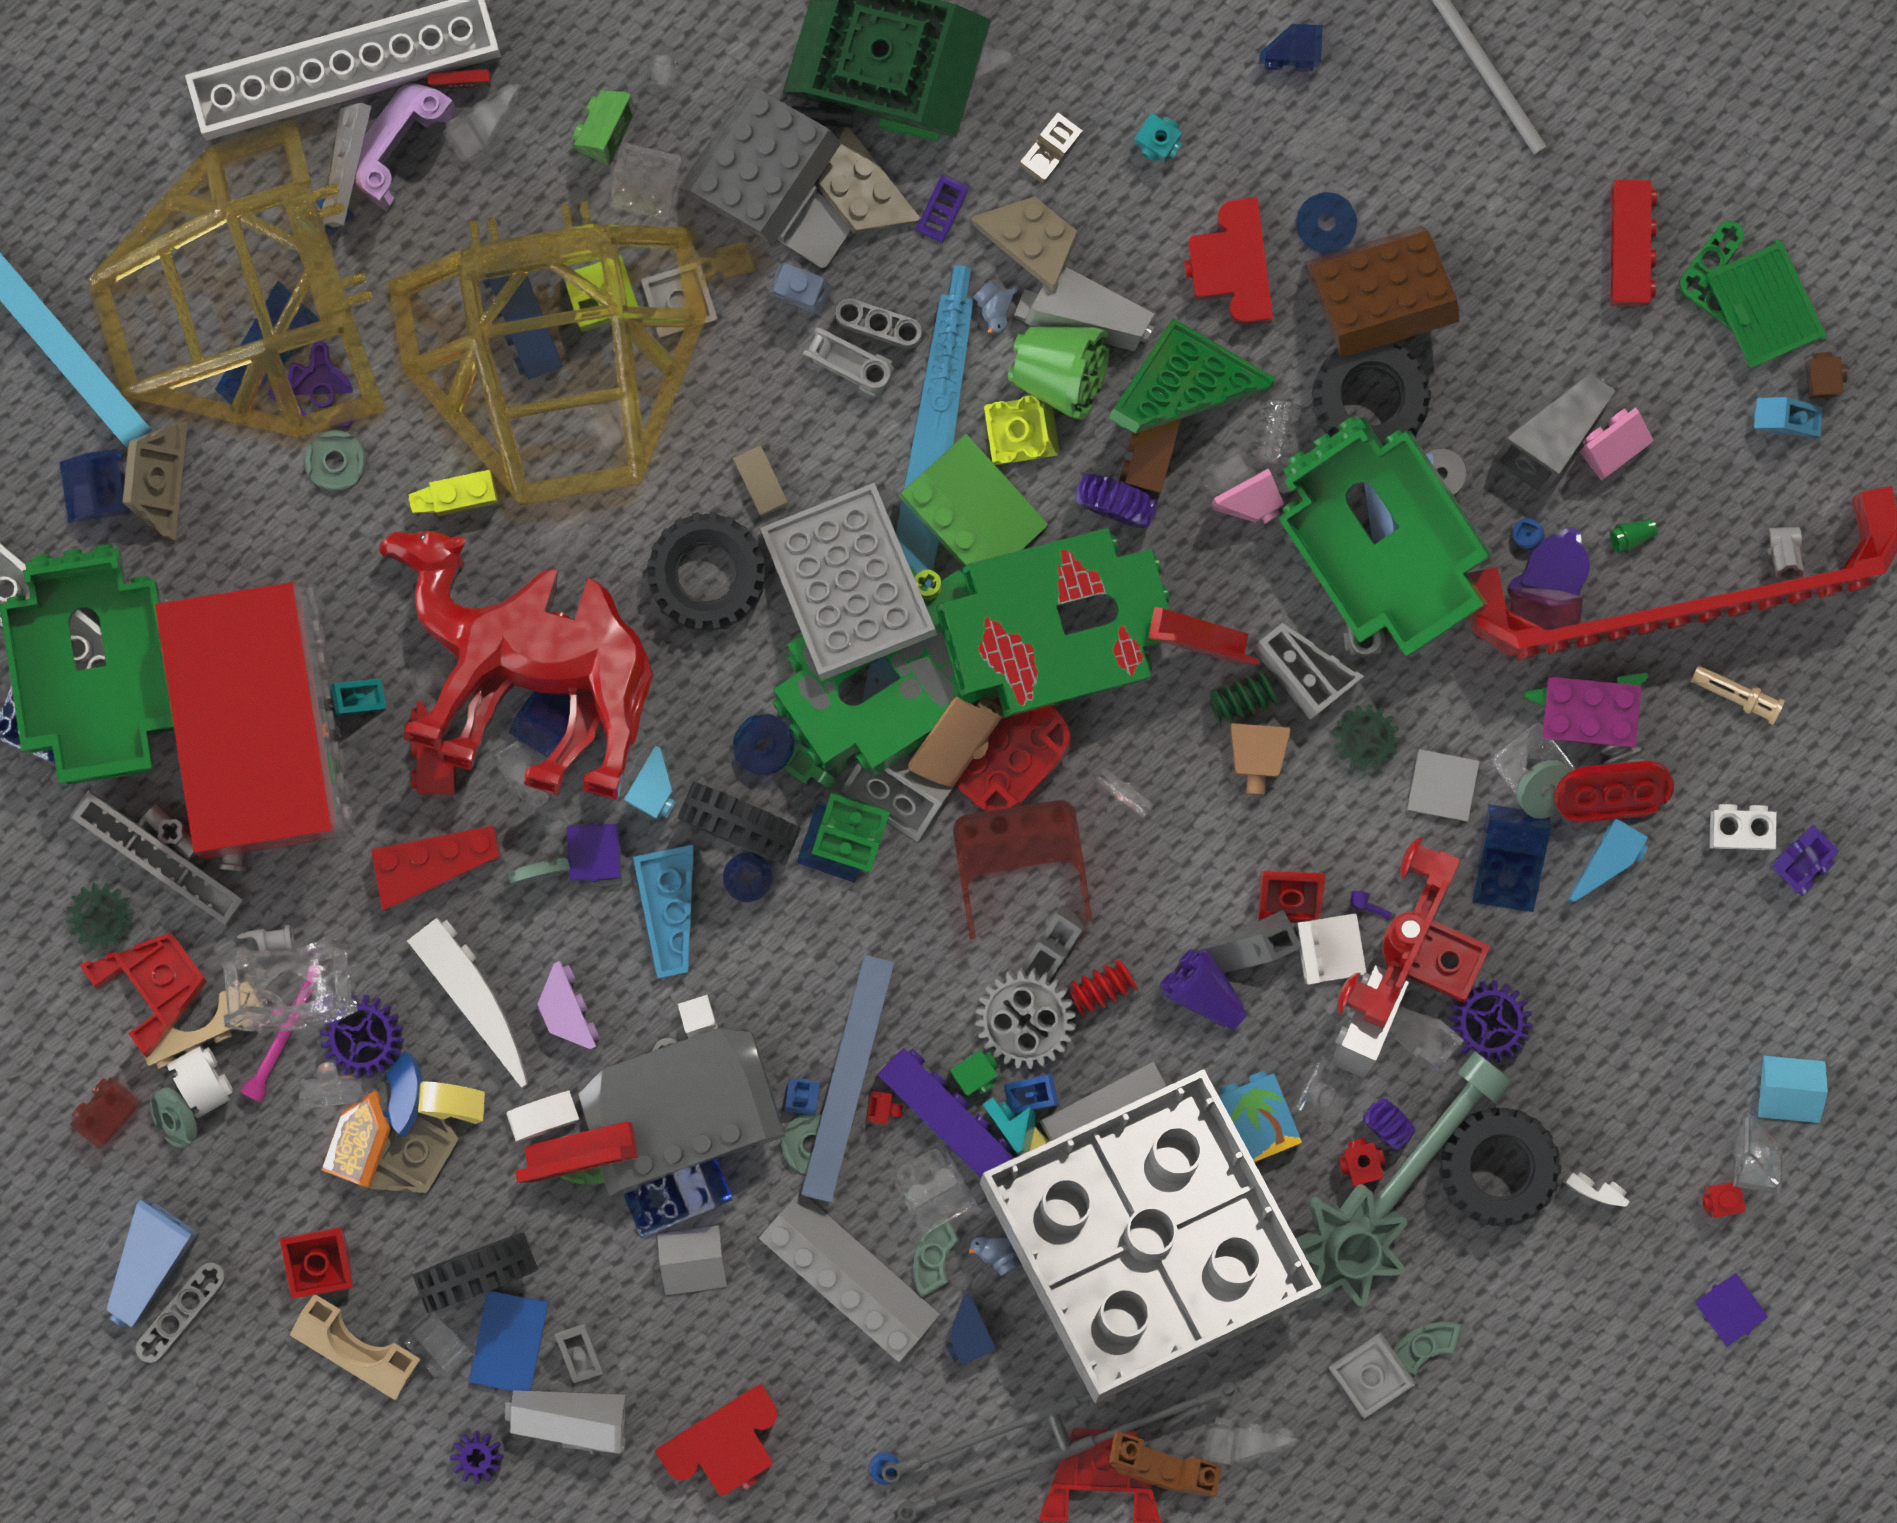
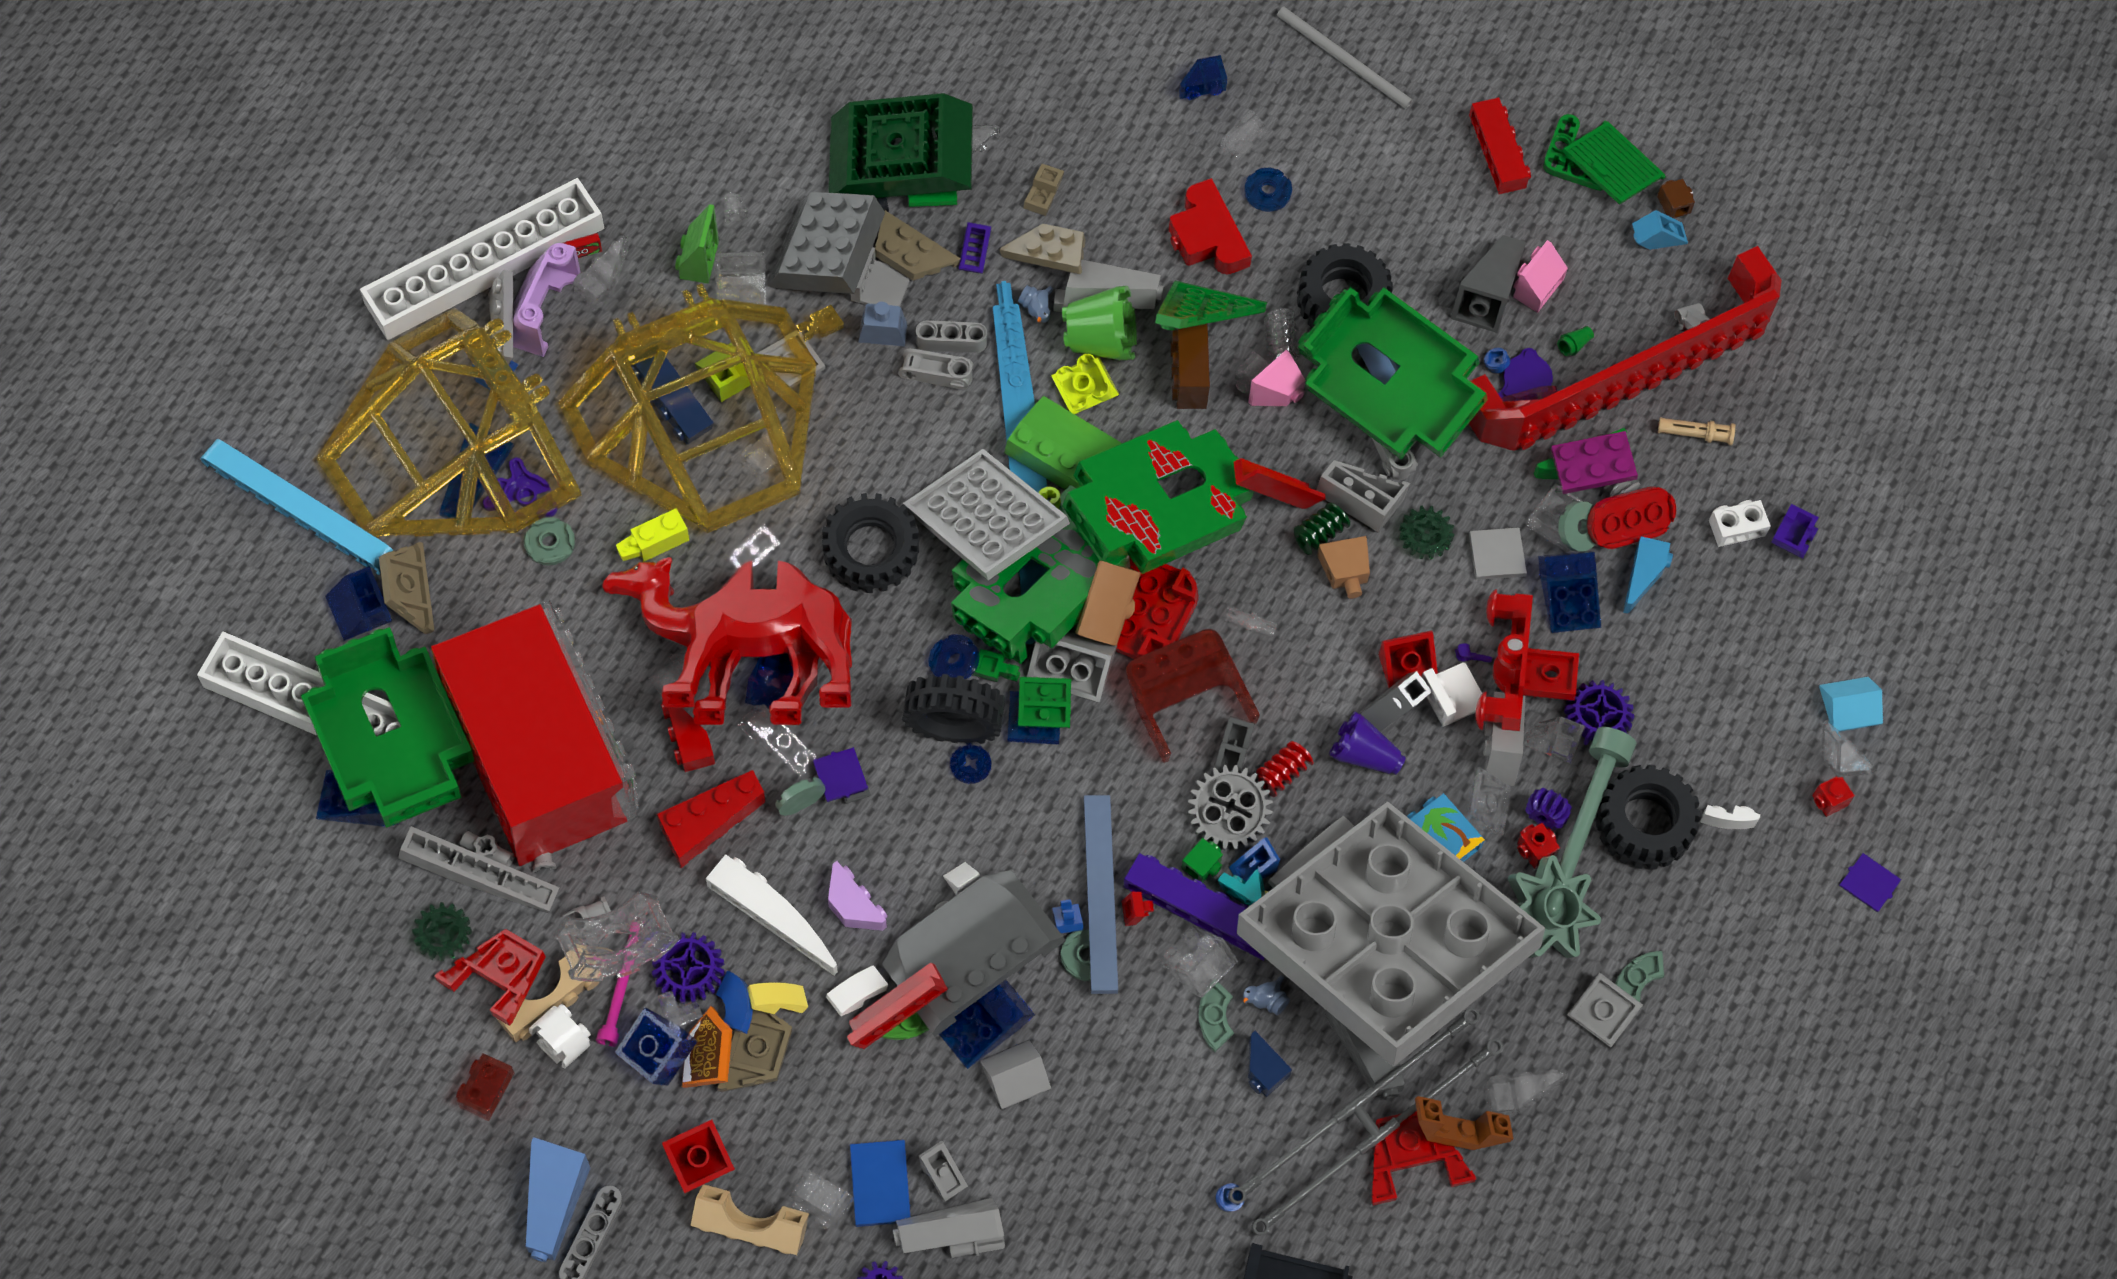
camera: 15 degrees left, 20 degrees down
(174, 1116) = (557, 1076): sand green tile -> none
(301, 1125) = (656, 1047): none -> clear blue slope
(358, 697) = (618, 706): teal slope -> none
(475, 1272) = (837, 1119): black tyre -> none
(653, 788) = (875, 709): medium azure slope -> none
(666, 900) = (910, 795): dark azure wing -> none
(725, 1443) = (1088, 1213): red brick -> none
(760, 481) = (893, 470): dark tan slope -> none
(849, 1276) = (1149, 1051): light grey slope -> none
(1116, 500) = (1175, 403): dark purple gear -> none
(1154, 128) = (1123, 159): teal brick -> none
(1383, 291) = (1330, 212): reddish brown slope -> none

